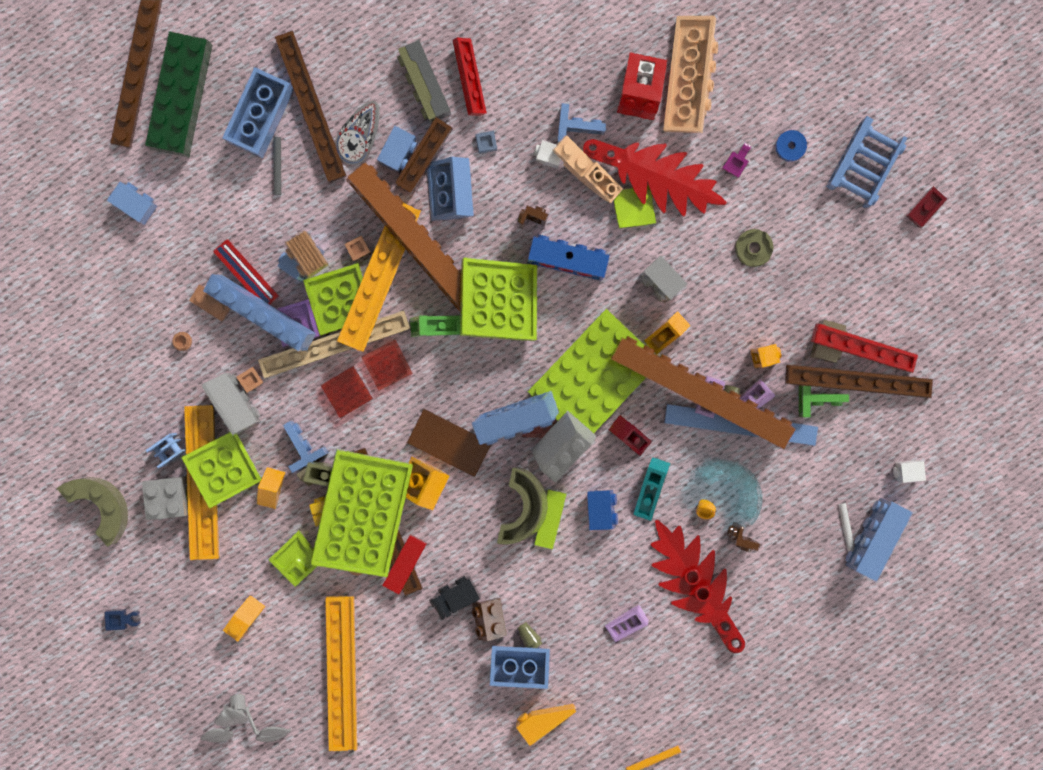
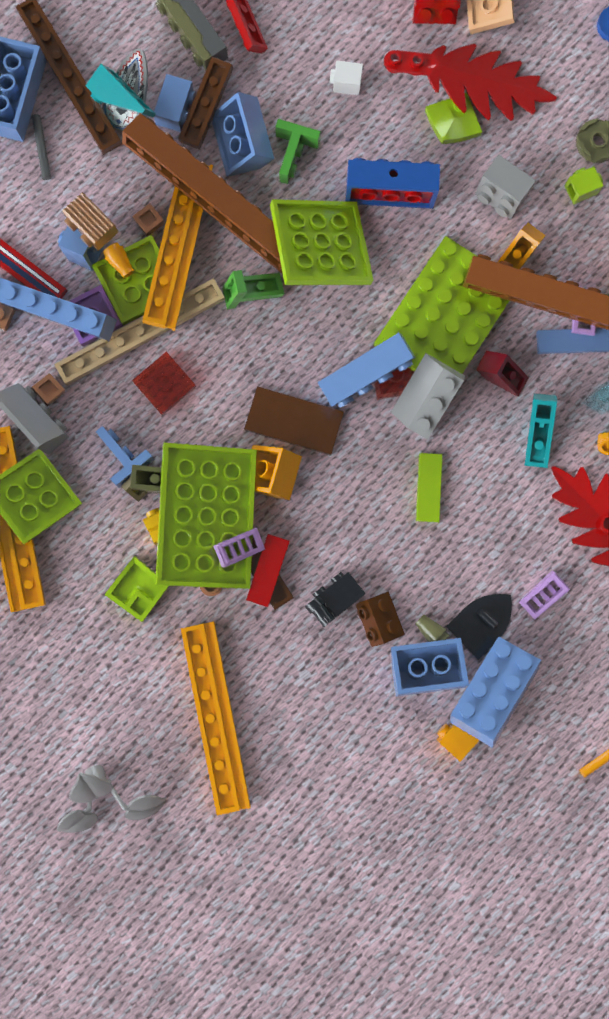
camera: 15 degrees left, 5 degrees down
(243, 618) = (86, 671): light orange slope -> none
(270, 488) = (93, 512): light orange slope -> none
(326, 282) = (118, 259): none -> light orange cone
(346, 133) = (112, 89): none -> teal slope
(382, 537) = (222, 554): none -> lavender slope
(387, 365) = (205, 345): clear red plate -> none
(486, 142) = (273, 79): sand blue tile -> none
(493, 208) = (298, 137): none -> bright green bracket
(533, 214) = (342, 143): reddish brown bracket -> none
(534, 508) = (408, 482): olive brick -> none
(568, 697) = (495, 691): none -> medium blue brick
(572, 636) = (482, 622): none -> black shield
(578, 124) = (373, 41): medium blue bracket -> none
(586, 170) = (393, 88): light nougat slope -> none
(601, 510) = (487, 463): blue brick -> none
(732, 285) = (584, 184): none -> lime brick
(736, 162) = (559, 49): magenta plate -> none

